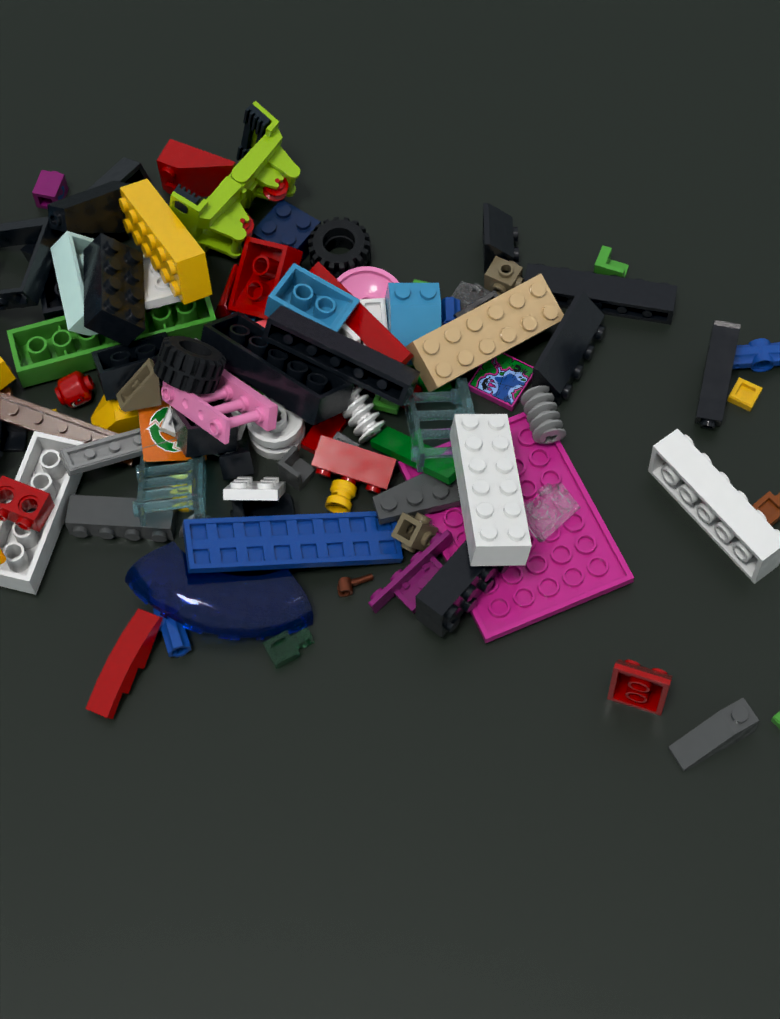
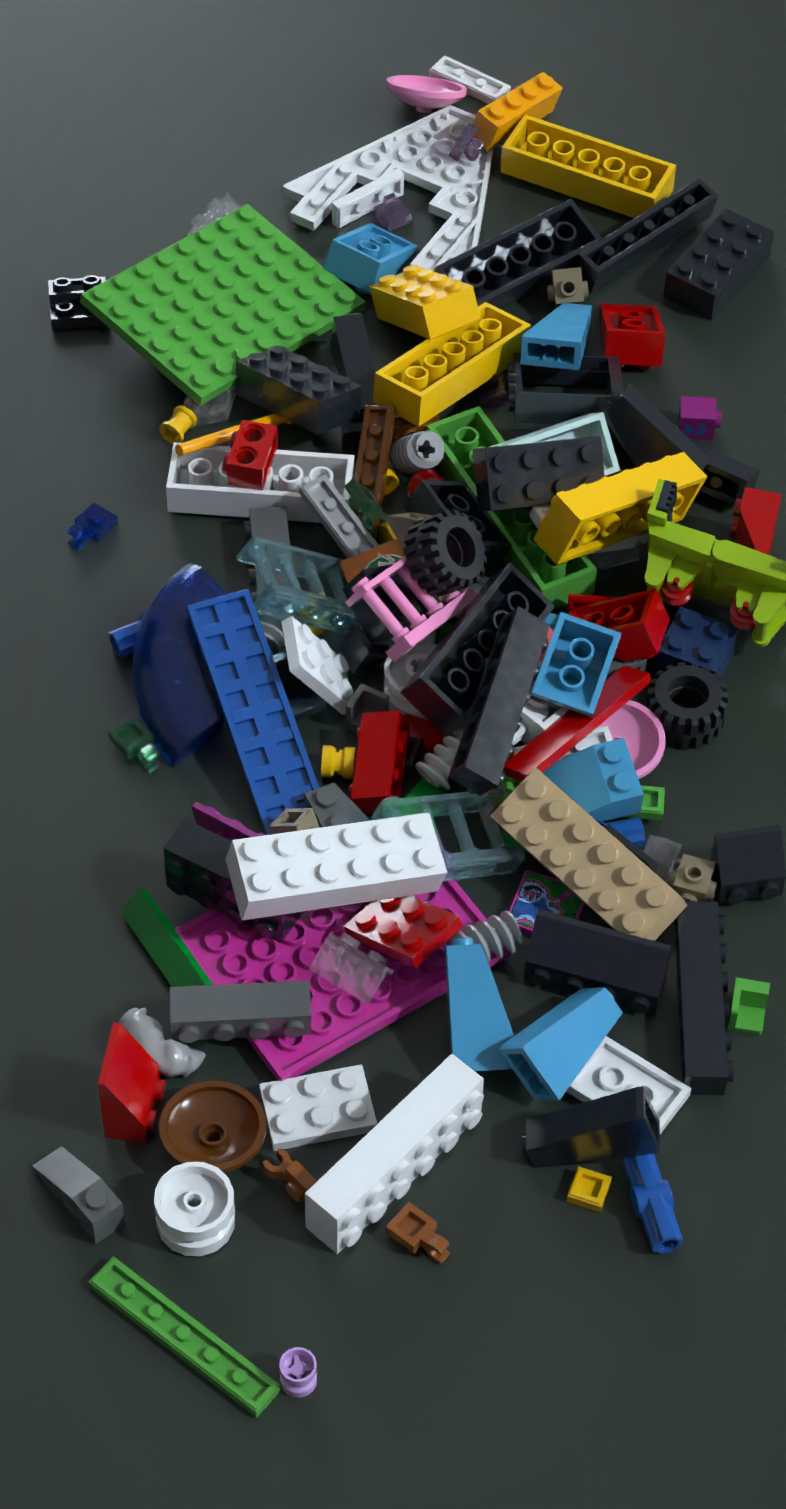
camera: 75 degrees right, 10 degrees down
(34, 656) = (91, 523): none -> clear blue plate
(40, 383) = (417, 452): none -> light grey piece
(89, 430) = (363, 500): none -> clear green plate
(123, 662) = (99, 597): red slope -> none
(345, 584) = (224, 786): copper hand -> none
(500, 645) = (163, 941): none -> green tile
(537, 458) = (404, 928): none -> red plate
(579, 594) = (240, 1011): none -> dark grey brick
(591, 668) = (171, 1056): none -> light grey animal
(607, 431) = (474, 1008): none -> dark azure slope
(632, 381) = (561, 1042): none -> dark azure slope
(656, 559) = (317, 1107): none -> white plate
(668, 354) = (618, 1069): none -> white plate
(679, 613) = (213, 1112): none -> reddish brown dish
(724, 578) = (296, 1176): none -> dark orange plate
(745, 650) = (194, 1208): none -> white wheel

